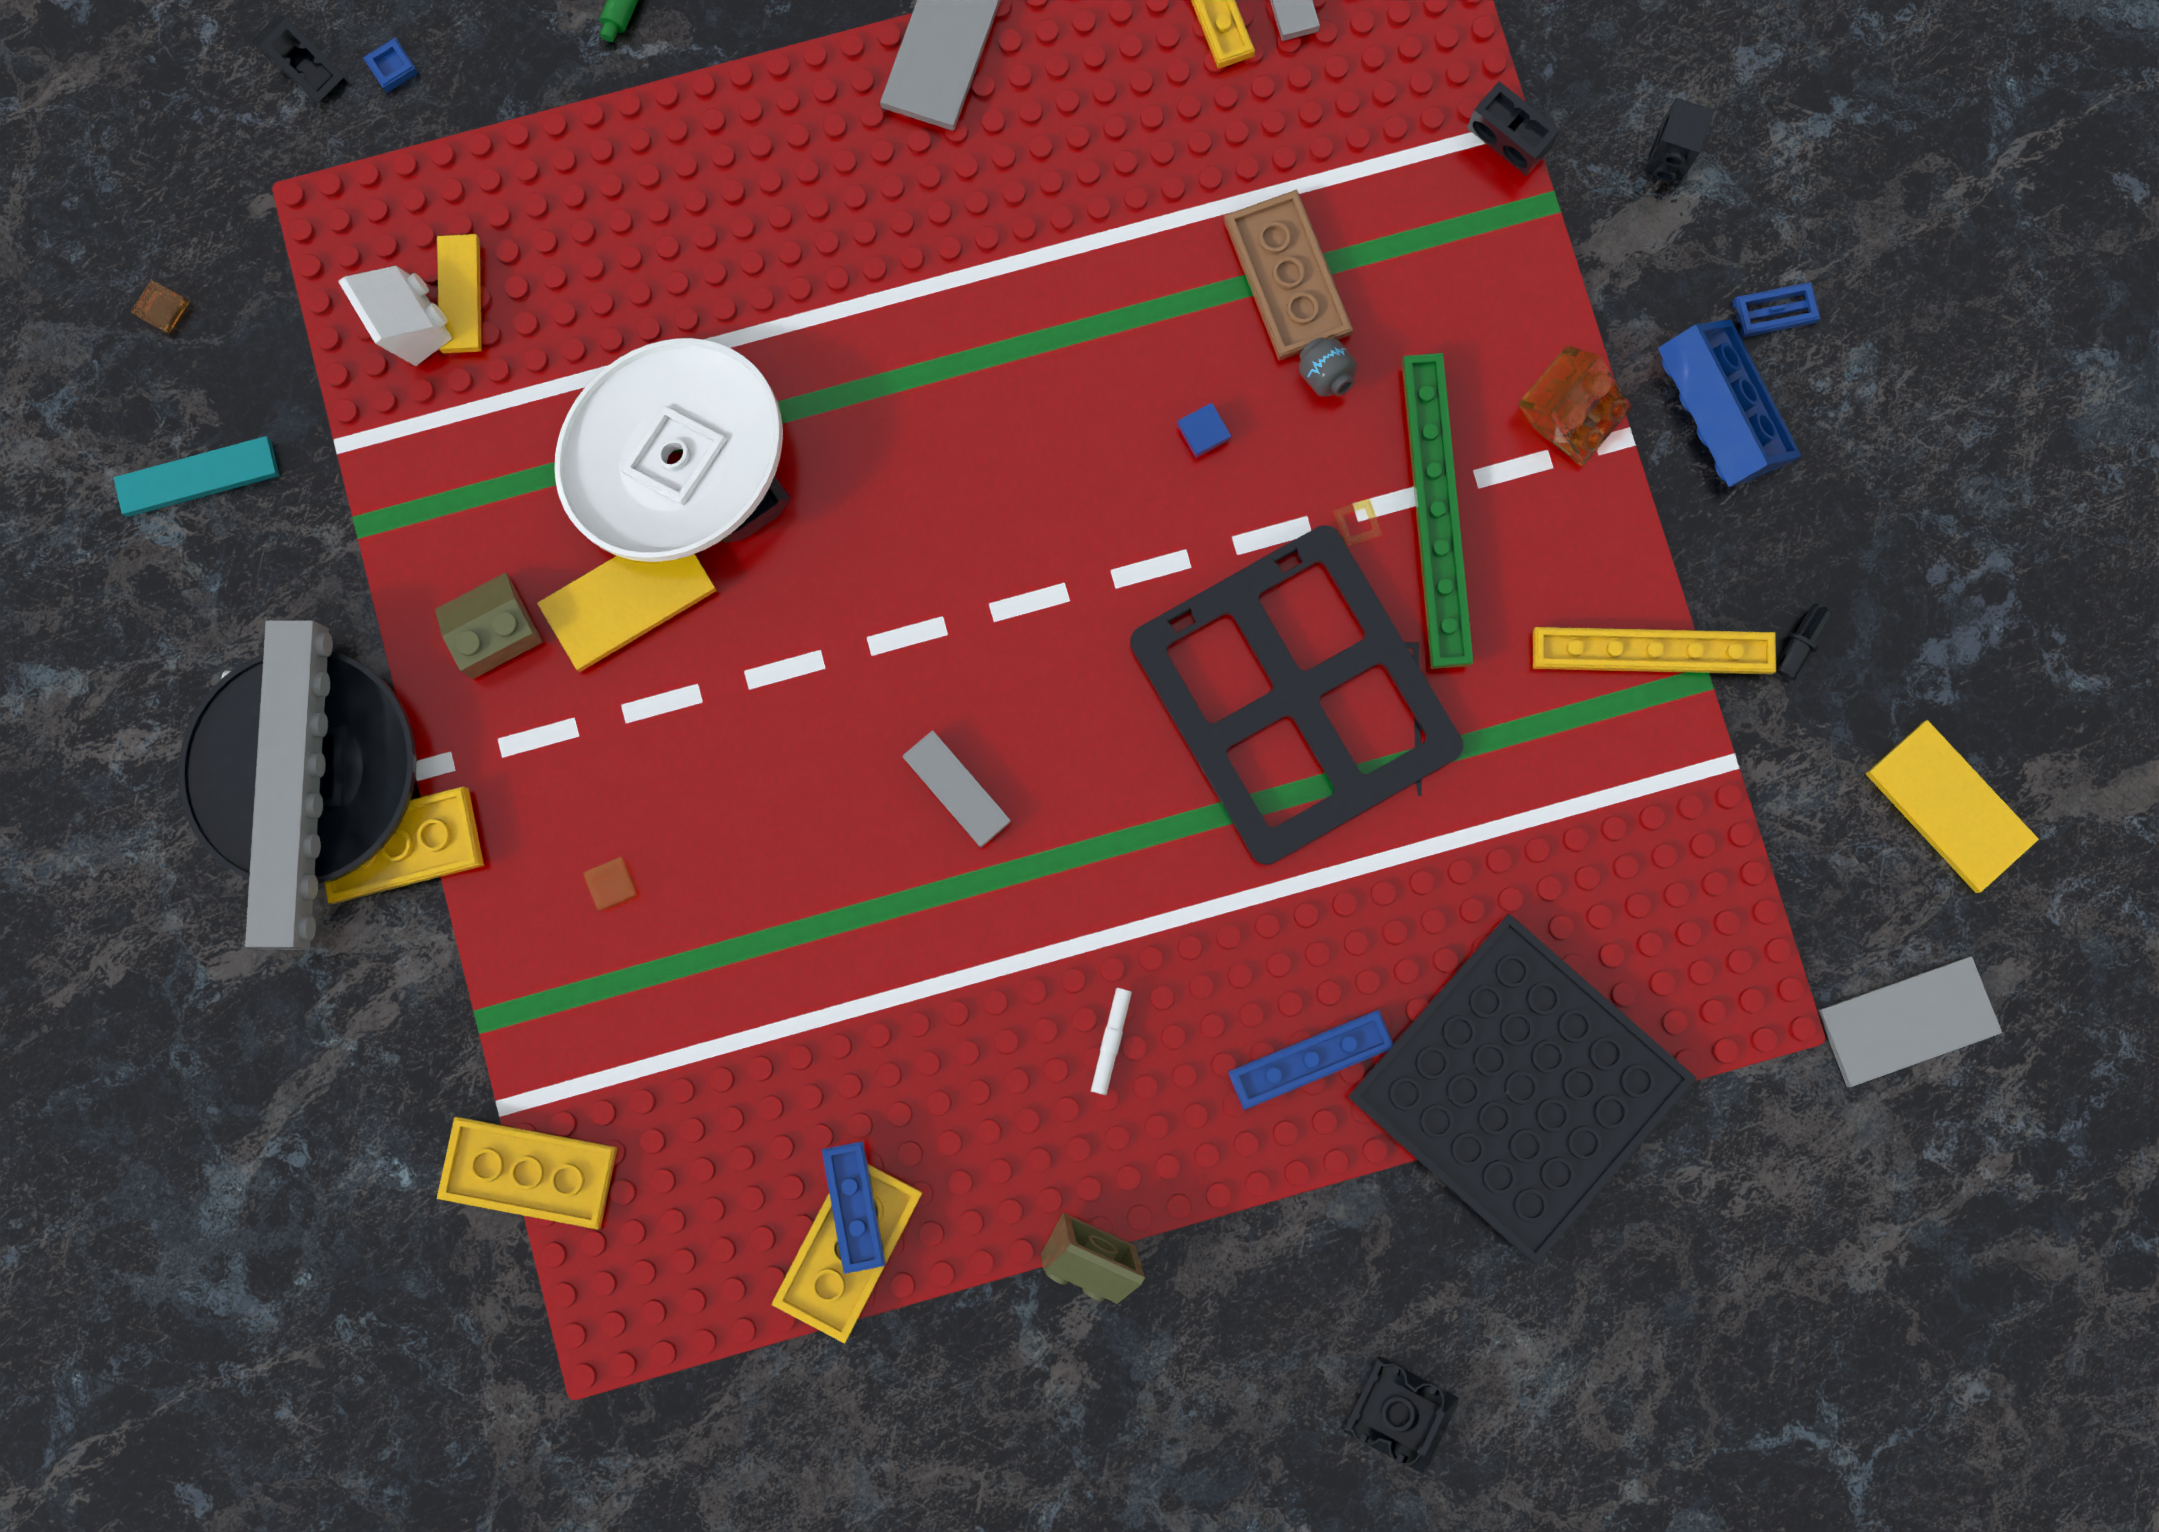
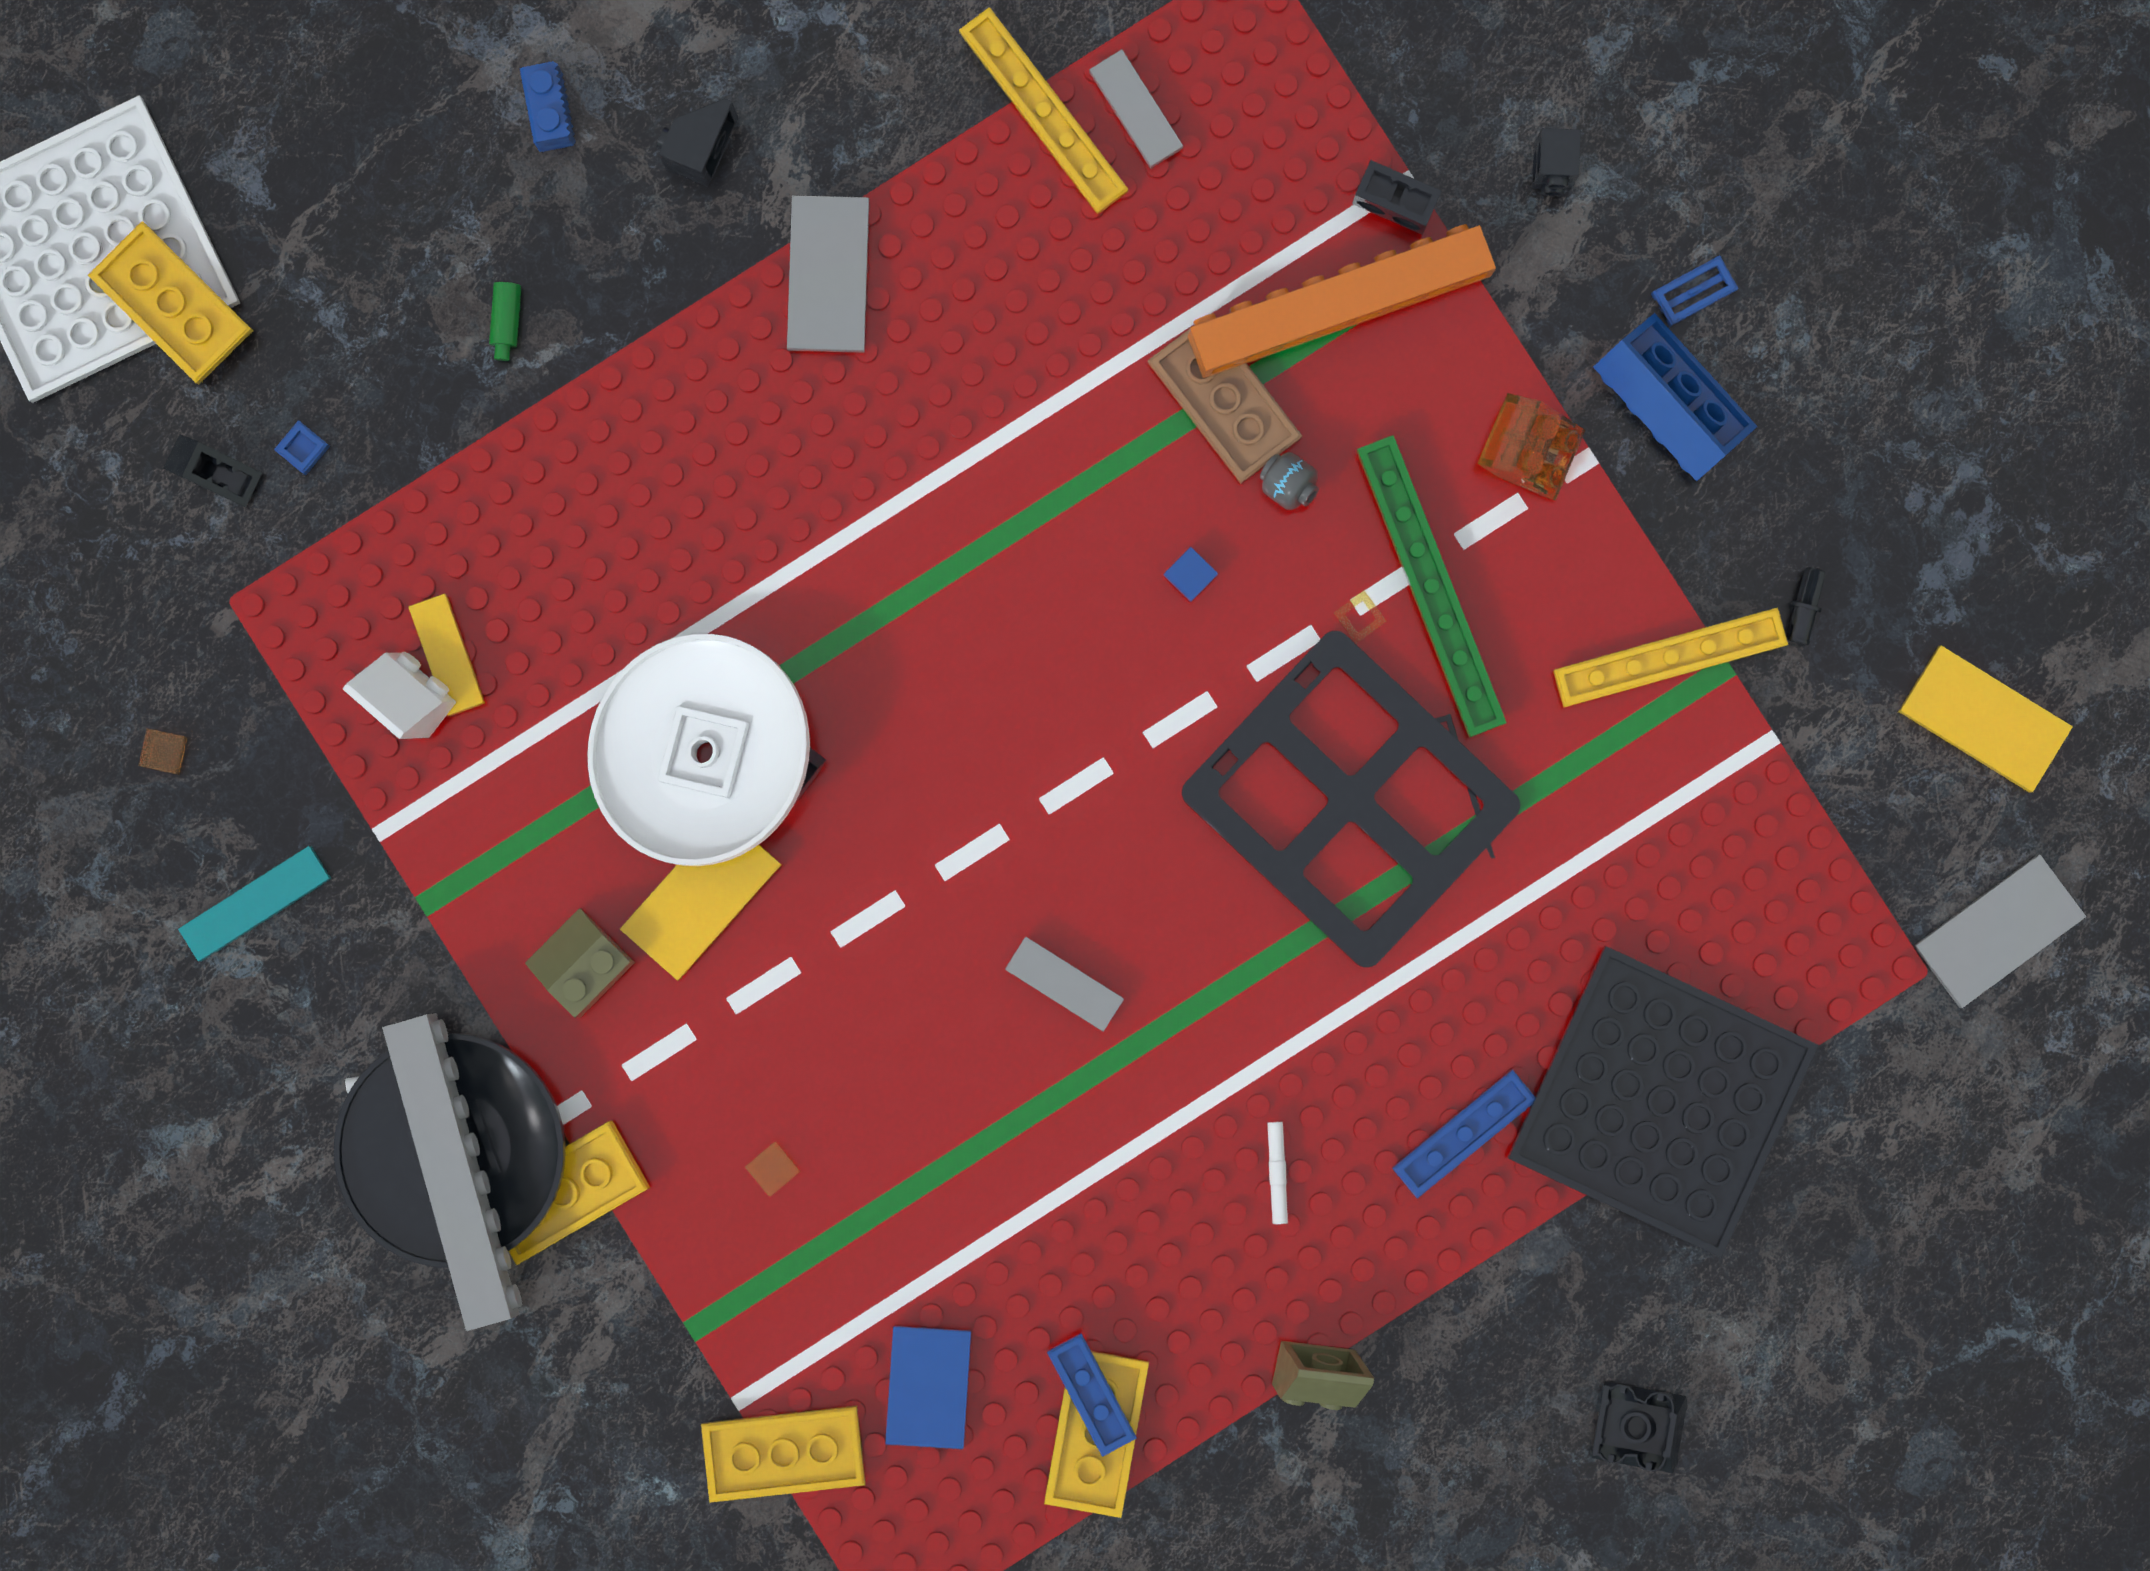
camera: 15 degrees left, 5 degrees up
(693, 1150) = (928, 1387): none -> blue tile
(1429, 210) = (1340, 301): none -> orange brick

